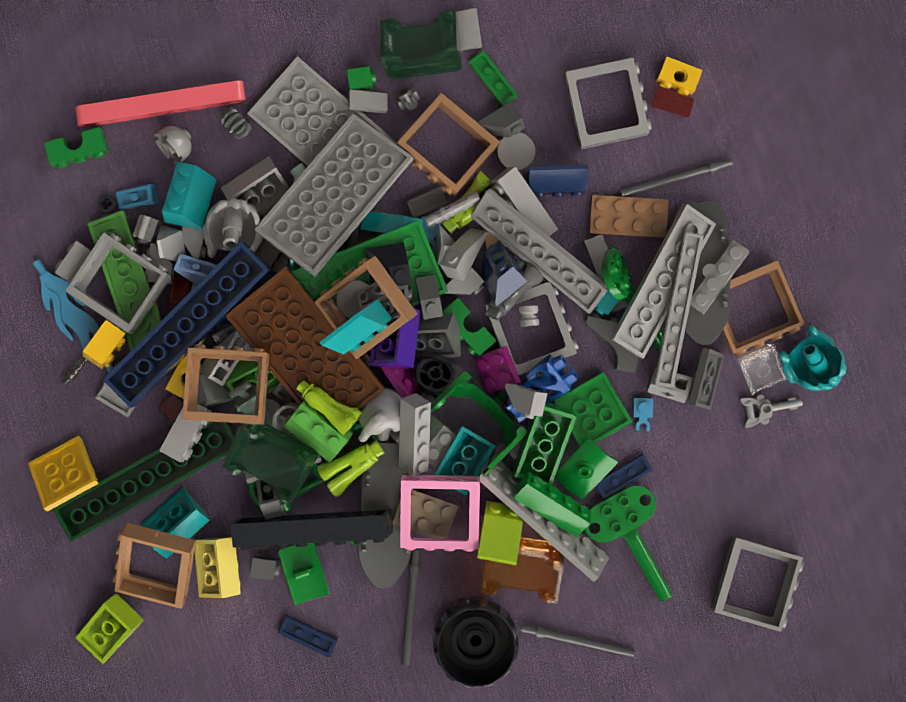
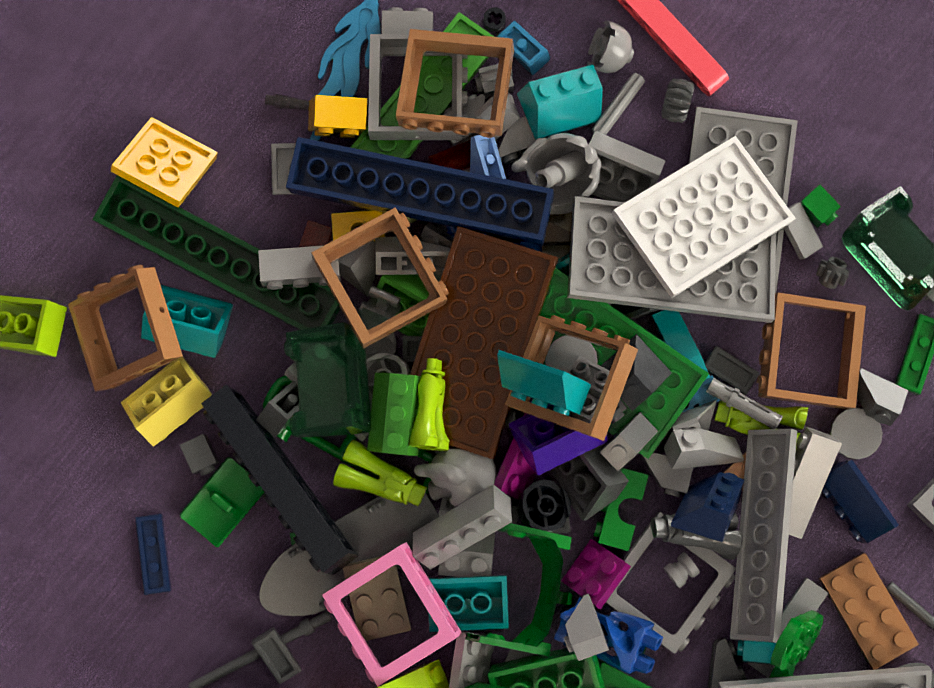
camera: 55 degrees right, 5 degrees down
(92, 260) = (424, 40): none -> medium nougat piece
(213, 161) = (619, 104): none -> light grey axle
(319, 157) = (703, 216): none -> white plate
(419, 599) = (276, 655): none -> dark grey tile

